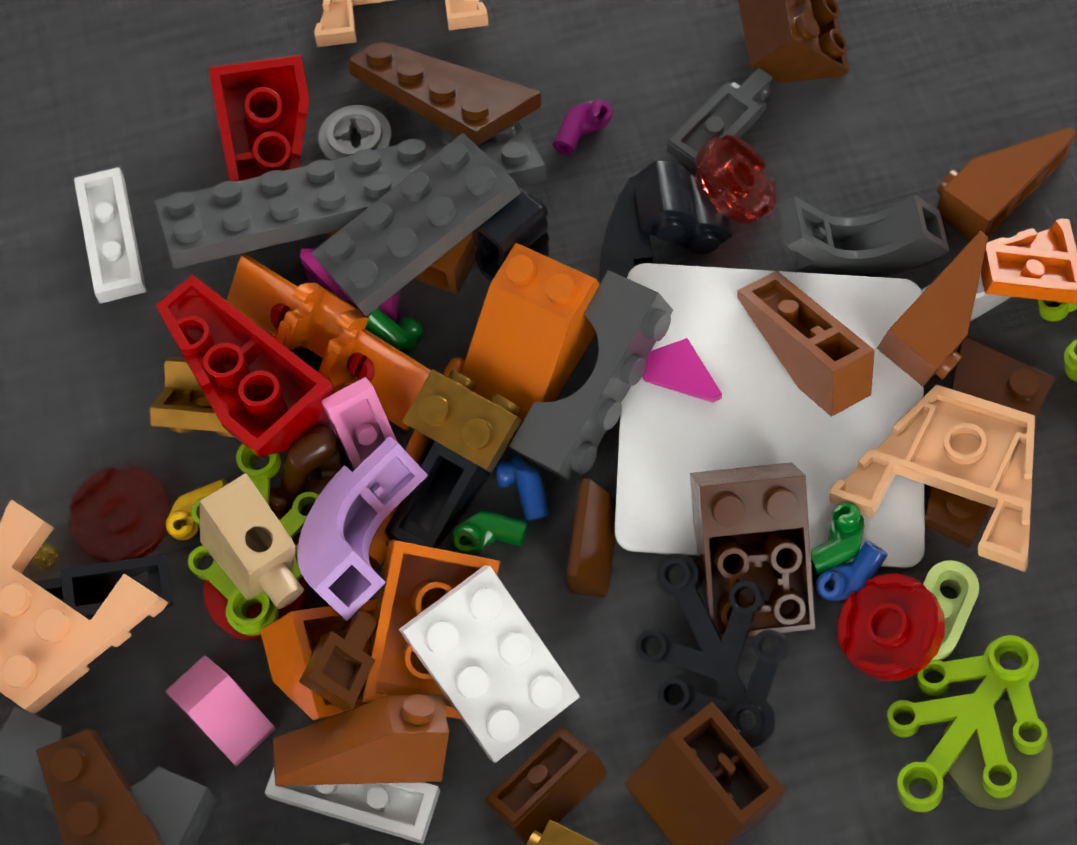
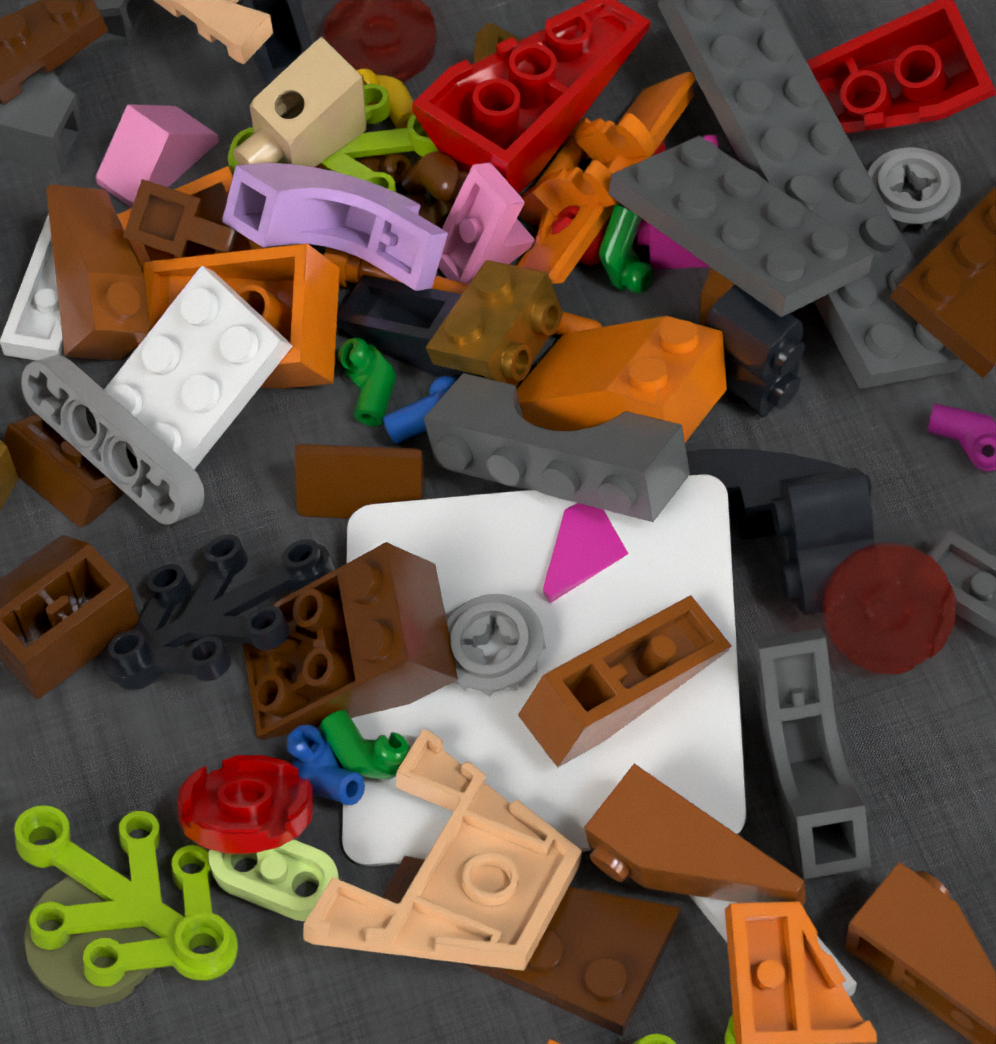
camera: 85 degrees right, 5 degrees down
(542, 739) = (163, 481): none -> light grey beam
(777, 425) = (518, 627): none -> light grey gear

